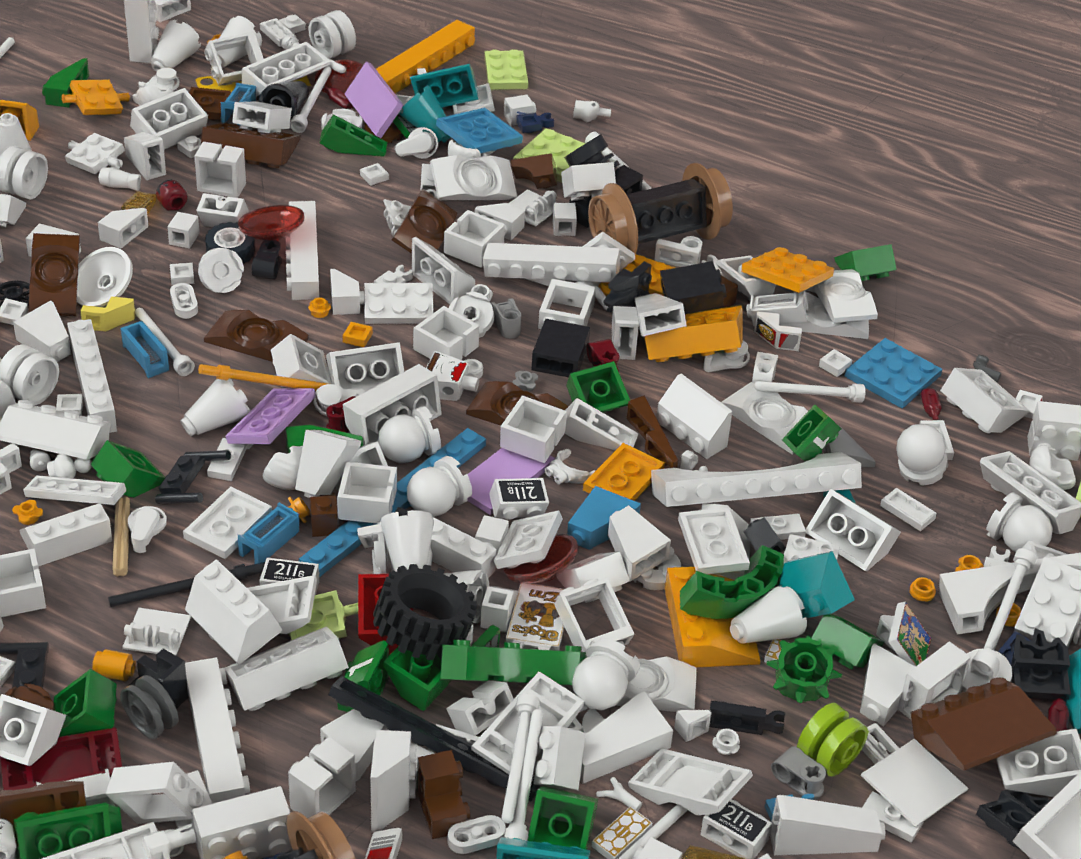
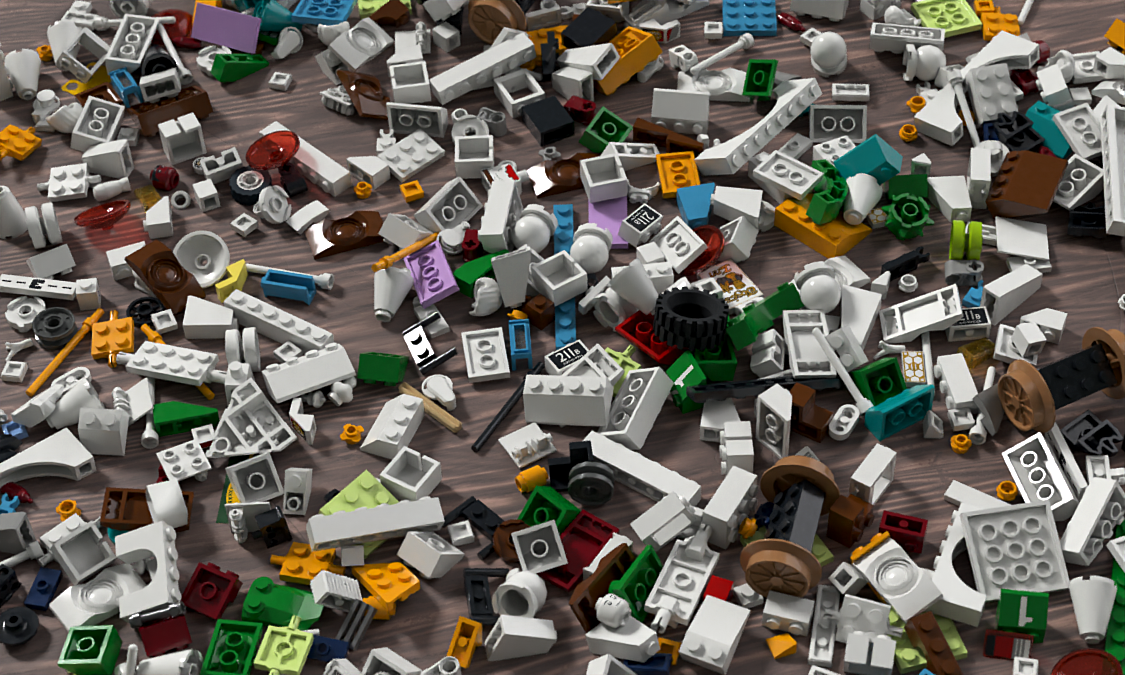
camera: 35 degrees left, 5 degrees up
(75, 490) = (368, 399): white tile -> none
(80, 195) = (103, 215): none -> clear red dish
(161, 217) = (180, 194): none -> white piece
(184, 300) = (269, 240): white plate -> none
(242, 298) = (307, 215): none -> white slope
(525, 705) = (804, 333): white piece -> none
(570, 596) = (771, 252): white window -> none
(761, 533) = (802, 154): black brick -> none
(909, 636) = (936, 160): tile -> none

